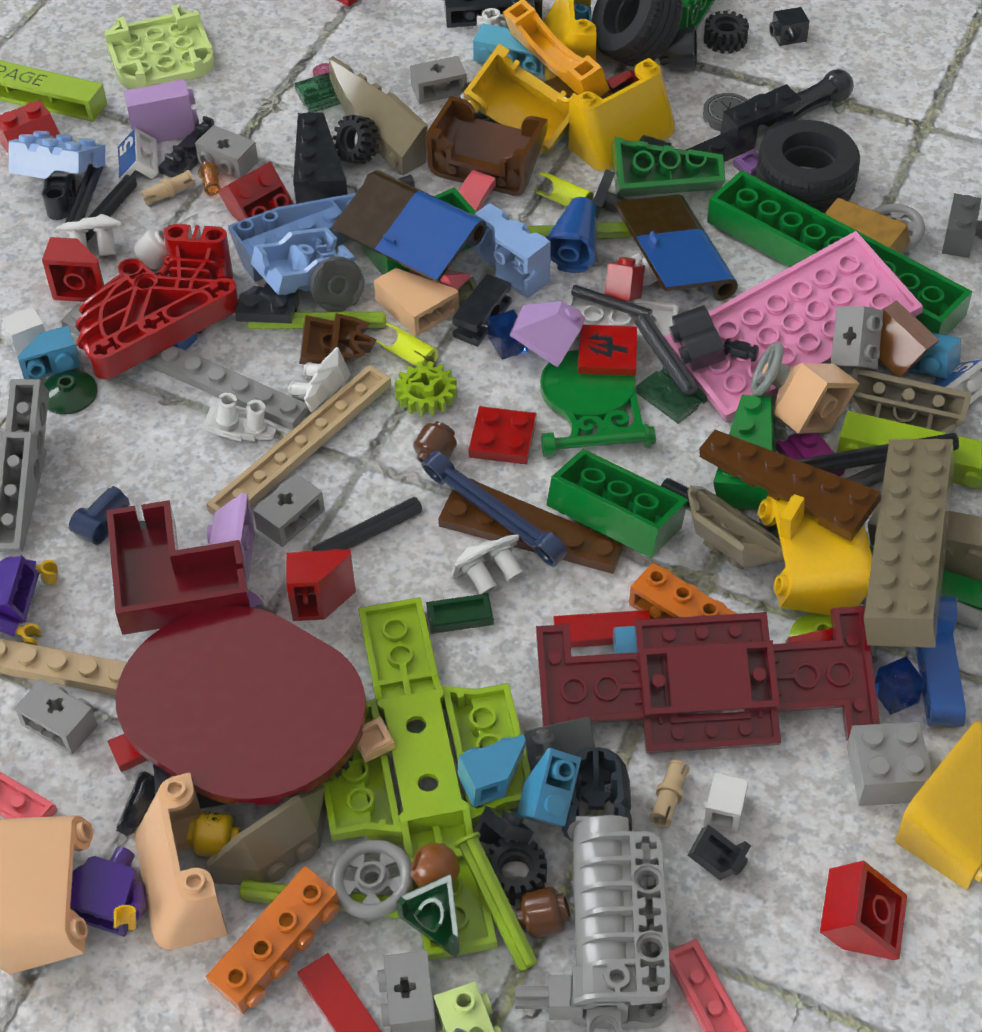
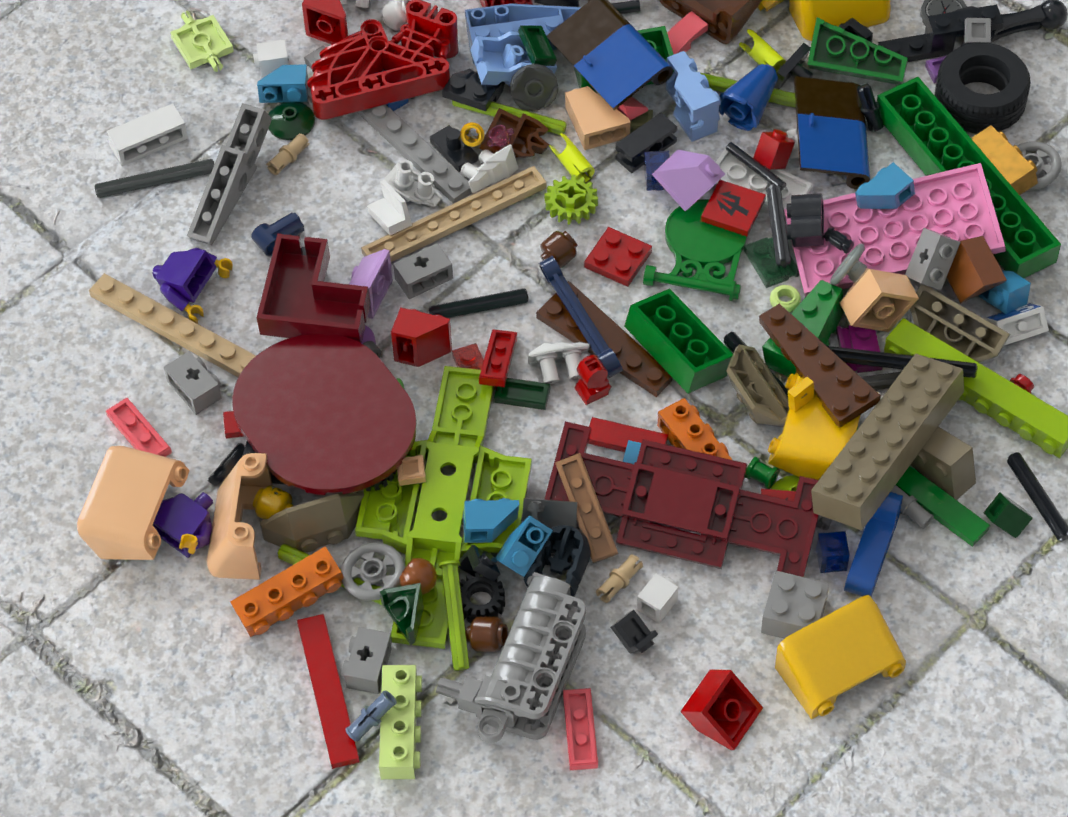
camera: 20 degrees right, 5 degrees up
(79, 427) = (288, 154): none -> tan pin
(227, 454) = (390, 211): none -> white panel
(266, 369) = (452, 148): none -> black tile
(295, 353) = (466, 136): none -> yellow cone
(320, 342) = (499, 136): none -> clear pink plate
(325, 238) = (537, 45): none -> dark green tile
(380, 591) = (468, 357): none -> clear red plate
(417, 581) = (498, 358): none -> red tile
(540, 573) = (593, 380): none -> red leg
(607, 728) = (589, 512): none -> medium nougat tile
(701, 420) = (785, 290): none -> yellowish green piece
(704, 212) = (870, 107): none -> black axle
(771, 283) = (886, 190): none -> dark azure slope
(778, 620) = (762, 473): none -> green bush
(781, 110) = (978, 30): none -> light grey plate

